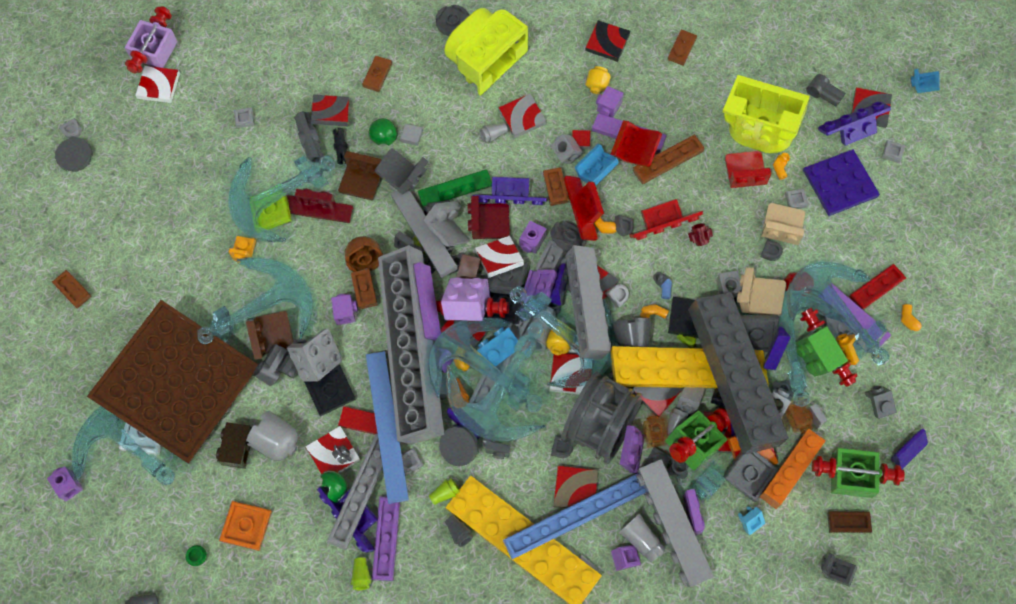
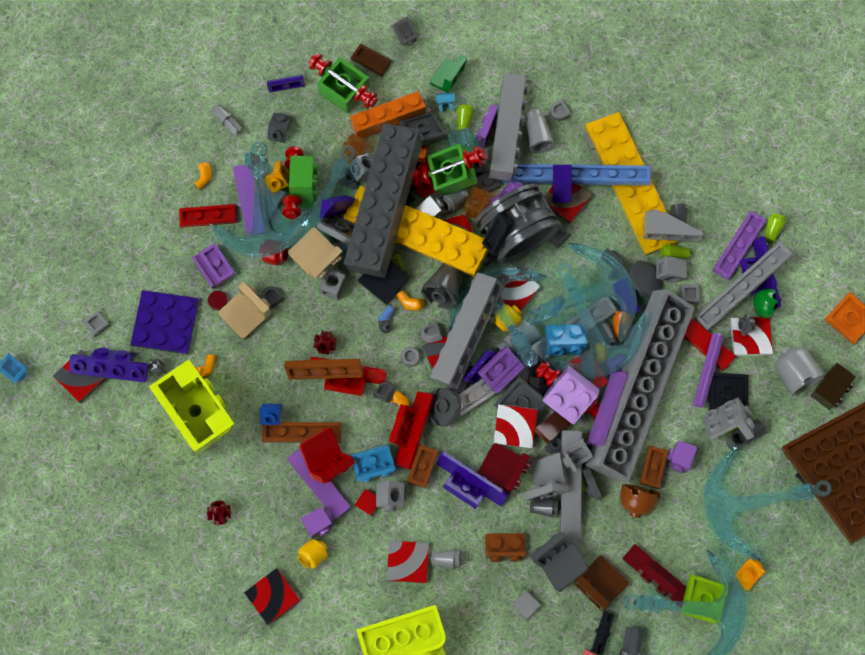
camera: 155 degrees left, 5 degrees up
(268, 369) = (775, 436): dark grey piece -> none
(269, 330) = (760, 469): reddish brown bracket -> none
(357, 396) = (708, 370): none -> medium lavender axle
(383, 131) = (553, 624): green hair -> none
(386, 428) = (696, 330): medium blue tile -> none
(434, 249) = (576, 455): none -> light grey bracket
(438, 469) = (671, 269): none -> light grey brick
(452, 164) = (505, 546): none -> dark orange bracket
(455, 187) = (516, 519): green bracket -> none
(465, 503) = (663, 226): none -> light grey slope
(466, 375) = (607, 333): none -> dark grey cone
(532, 237) = (474, 426): medium lavender brick -> none
(586, 492) = (562, 183): none -> dark purple slope
(613, 381) = (497, 233): none -> black tile
(622, 267) = (410, 356): none -> light grey tile
(625, 557) = (558, 128): medium lavender slope -> none
(636, 578) = (559, 111): none -> light grey tile
(680, 211) = (324, 369): none -> dark orange plate
(682, 47) = (205, 544): dark orange plate -> none
(688, 69) = (219, 512): none -> dark red gear
(702, 156) = (270, 414): none -> blue bracket
(722, 514) = (464, 116): none -> lime cone
(746, 169) = (240, 380): red bracket -> none
(767, 549) = (448, 73): none -> green panel
(796, 199) = (215, 329): light grey tile -> none
(813, 222) = (217, 300): none -> dark red tile
(818, 143) = (157, 367): none -> dark grey plate
(818, 417) = (339, 142): light grey tile -> none
(821, 87) = (110, 419): dark grey piece -> none
(839, 246) = (213, 265): none -> medium lavender plate
(931, 380) = (227, 119): none -> light grey axle

